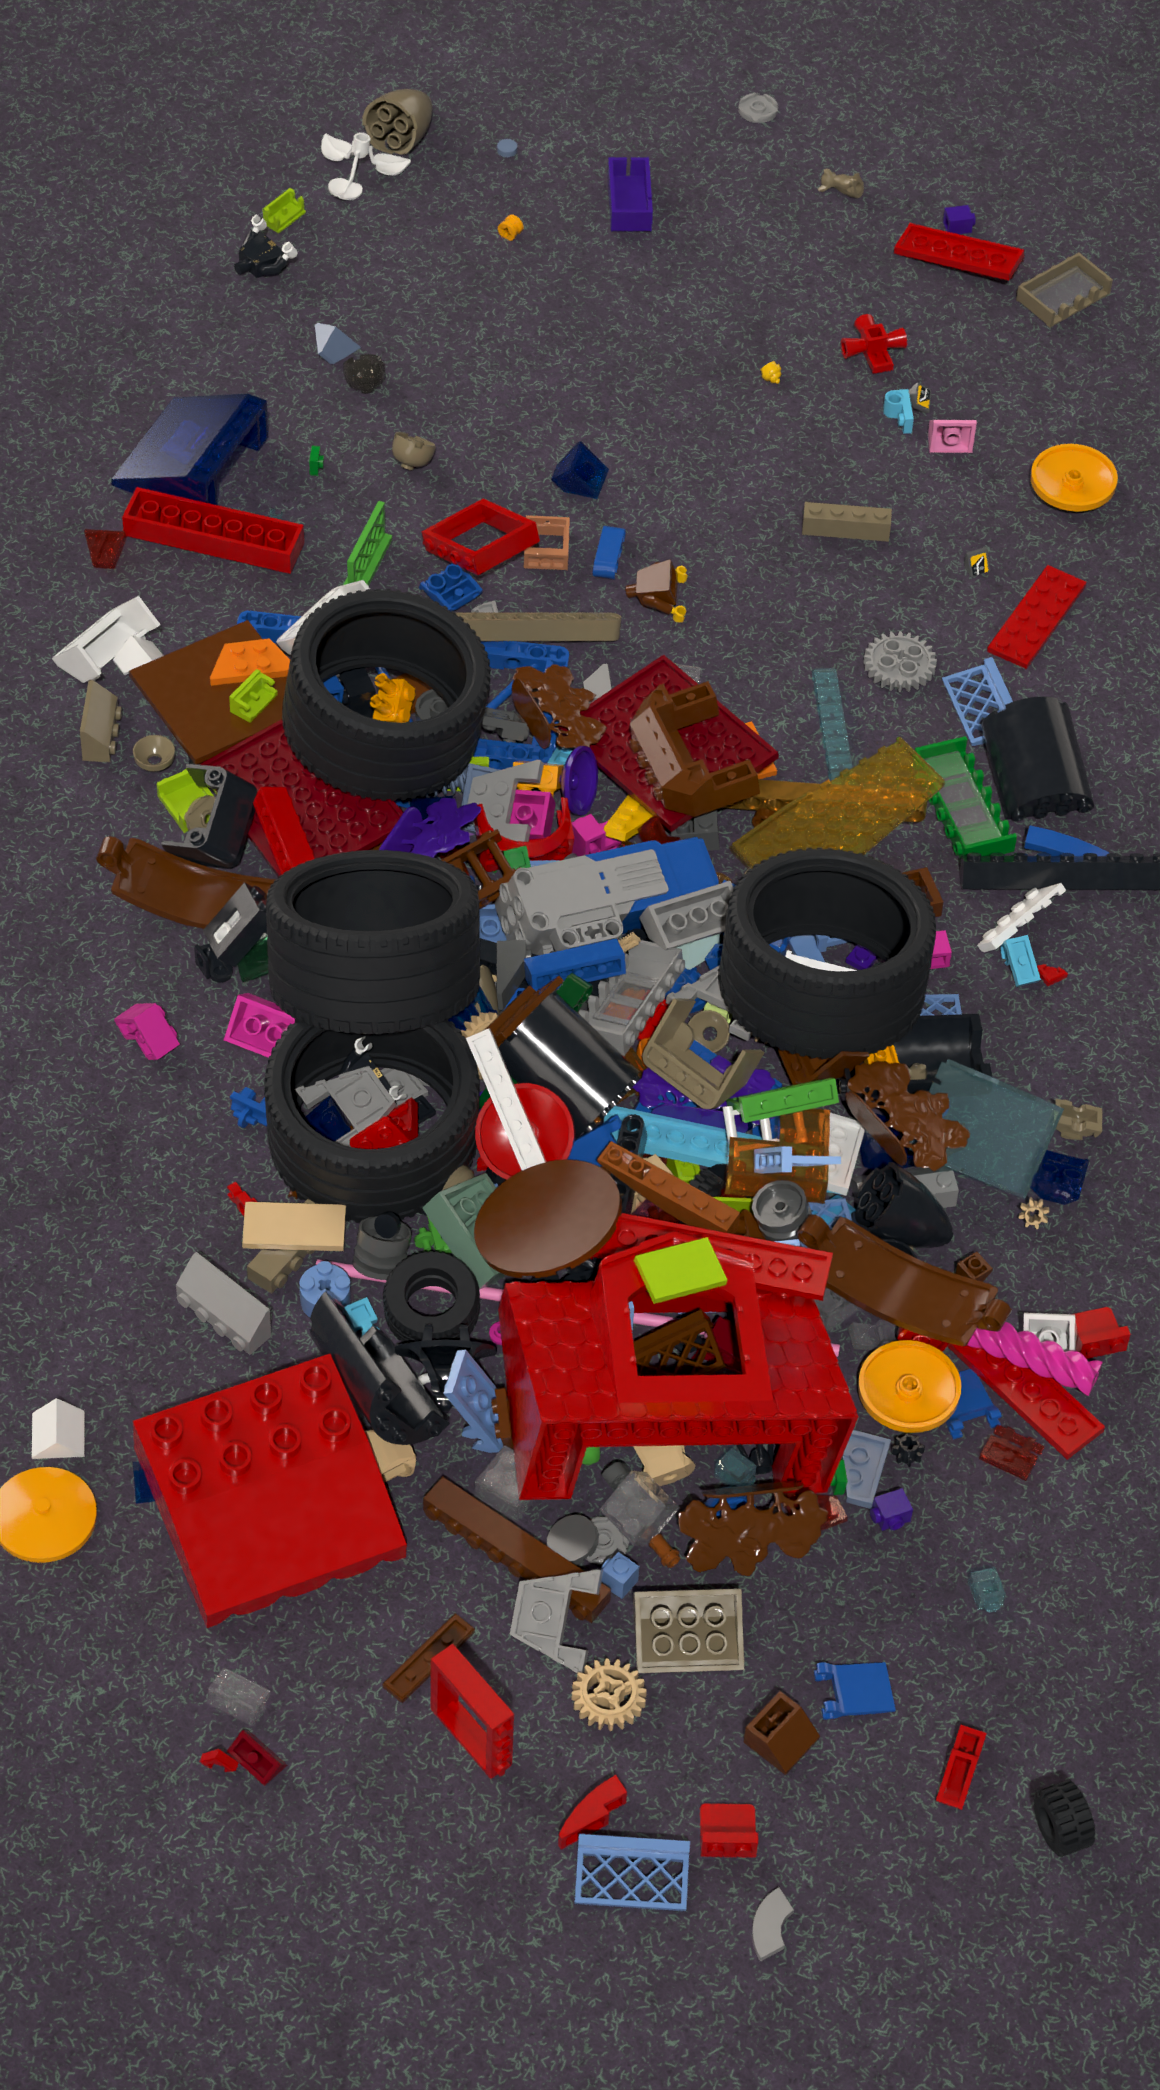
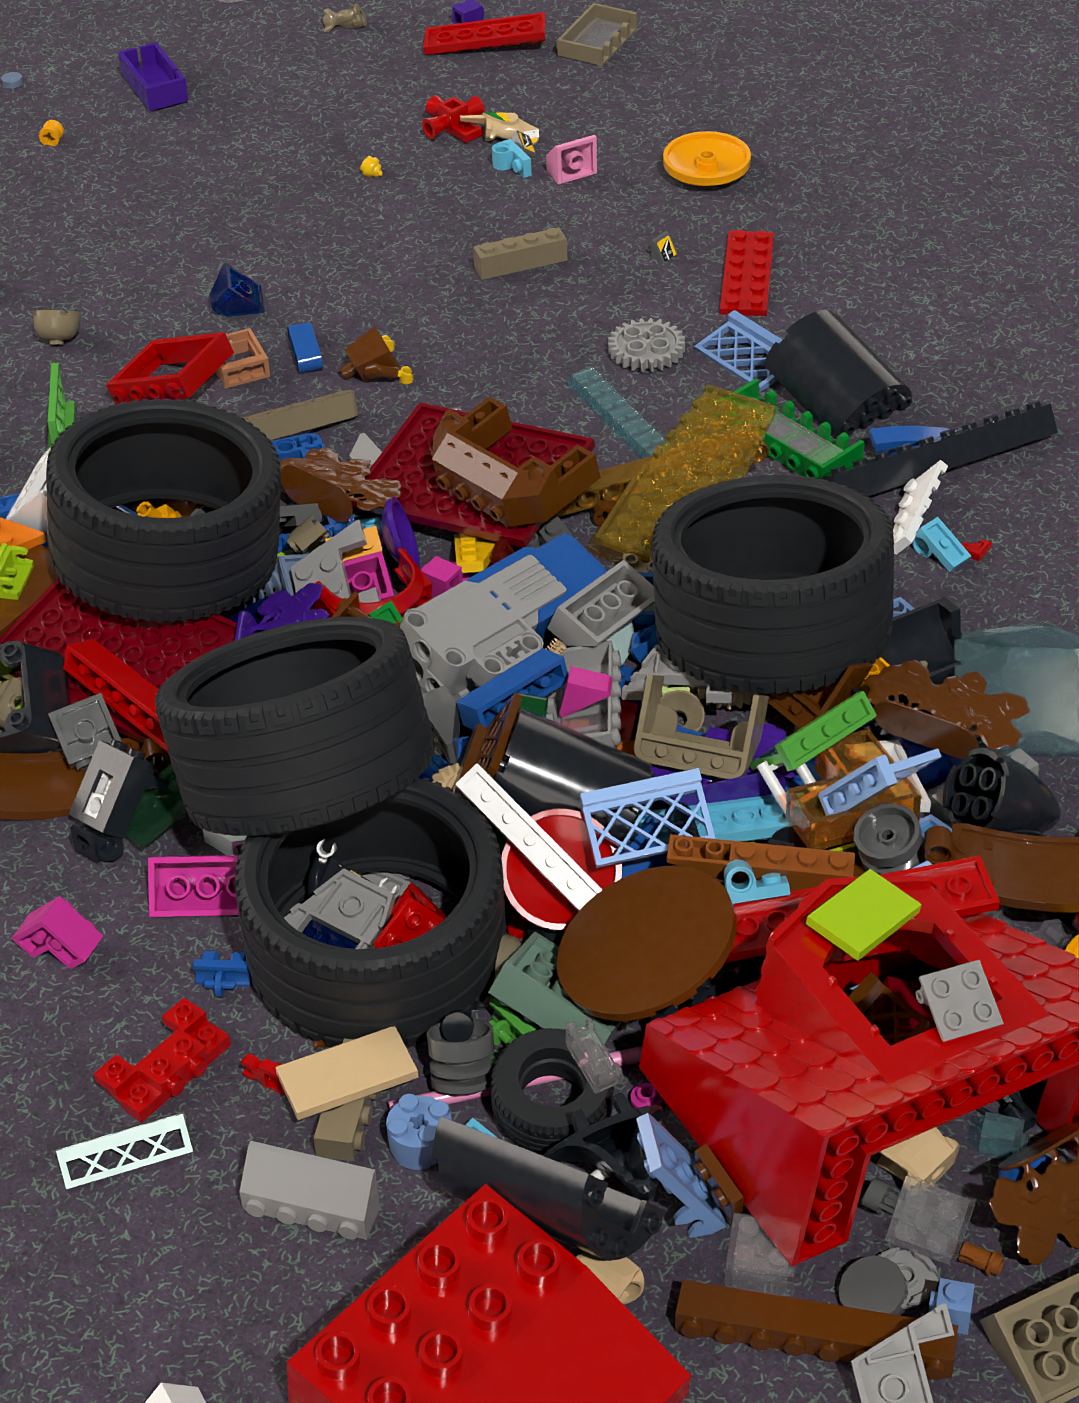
camera: 20 degrees left, 10 degrees down
(116, 1209) = (121, 1138): none -> light aqua fence
(178, 1167) = (169, 1066): none -> red bracket
(245, 863) = (81, 728): none -> dark grey plate
(466, 1289) = (592, 1056): none -> clear hinge
(501, 753) = (307, 536): none -> dark tan cylinder
(602, 1098) = (635, 794): none -> light blue fence
(630, 986) = (583, 689): none -> dark pink slope
(648, 1209) = (751, 889): none -> medium azure plate
(705, 1364) = (959, 1000): none -> light grey hinge
(914, 371) = (502, 125): none -> tan animal

